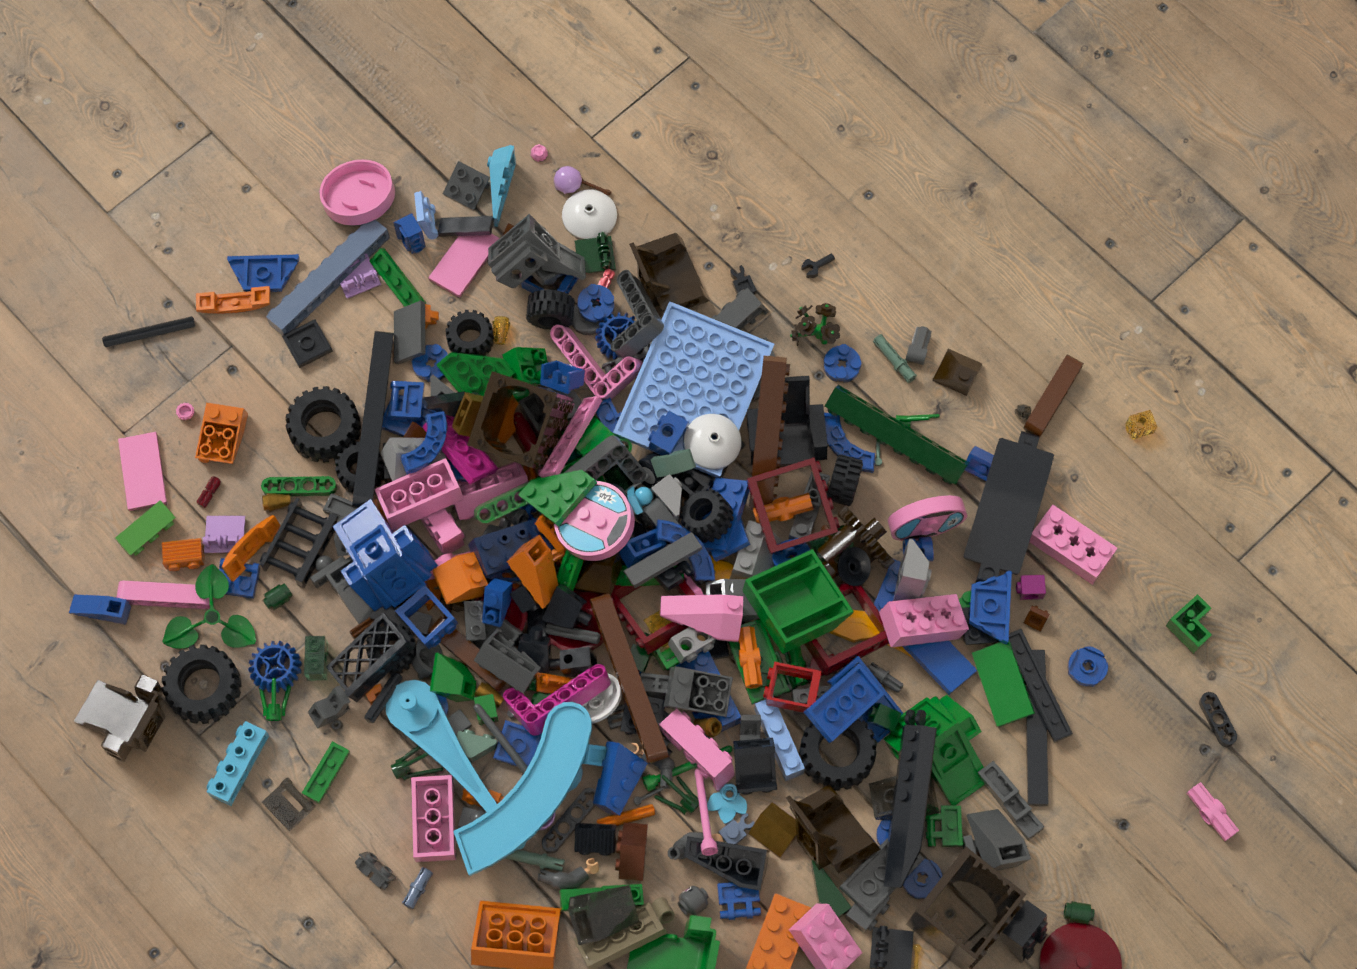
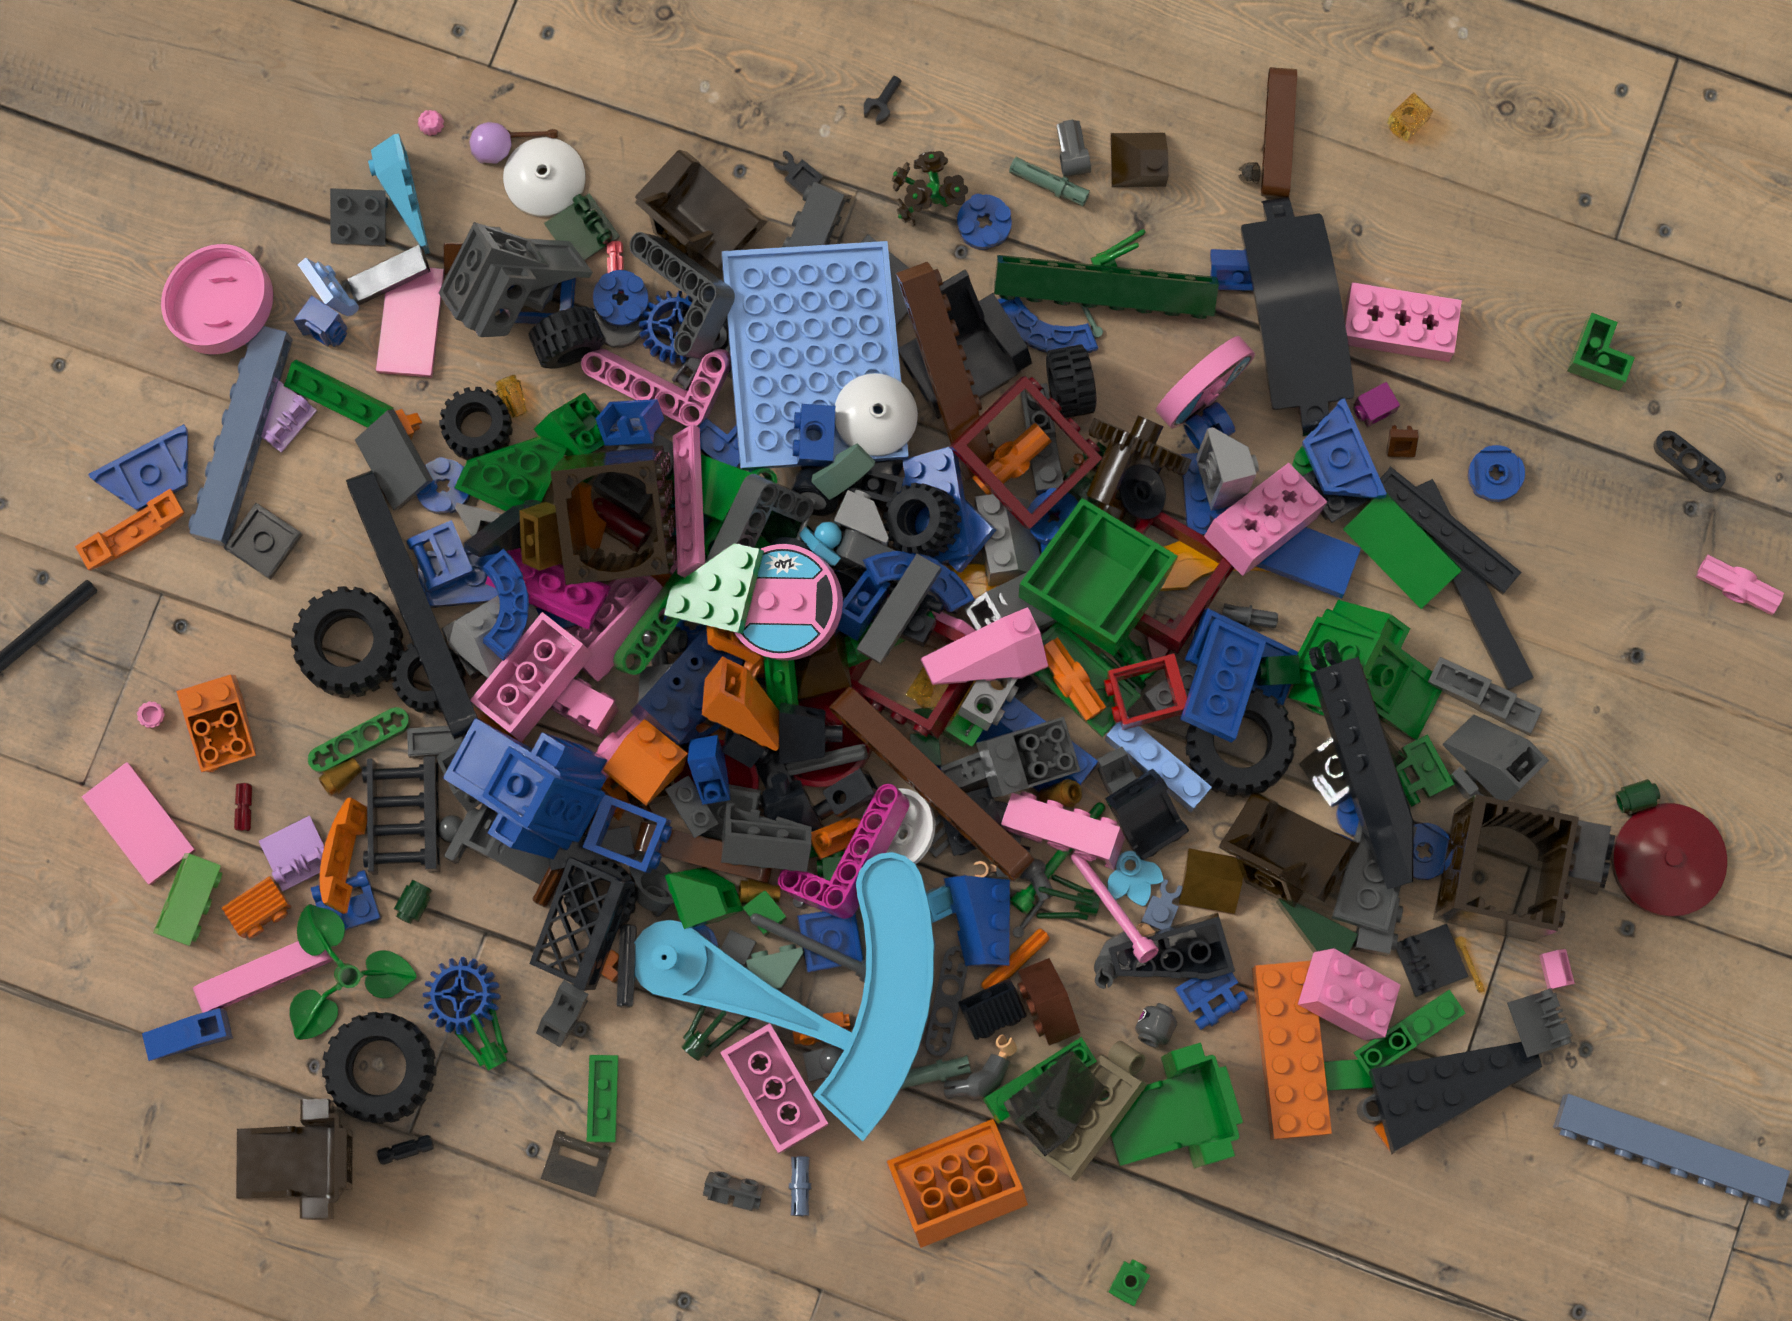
camera: 25 degrees left, 10 degrees up
(190, 743) = (405, 1149): none -> black axle
(237, 763) = (481, 1145): medium azure brick -> none
(315, 658) = (508, 957): clear green brick -> none
(415, 431) = (477, 594): reddish brown slope -> none

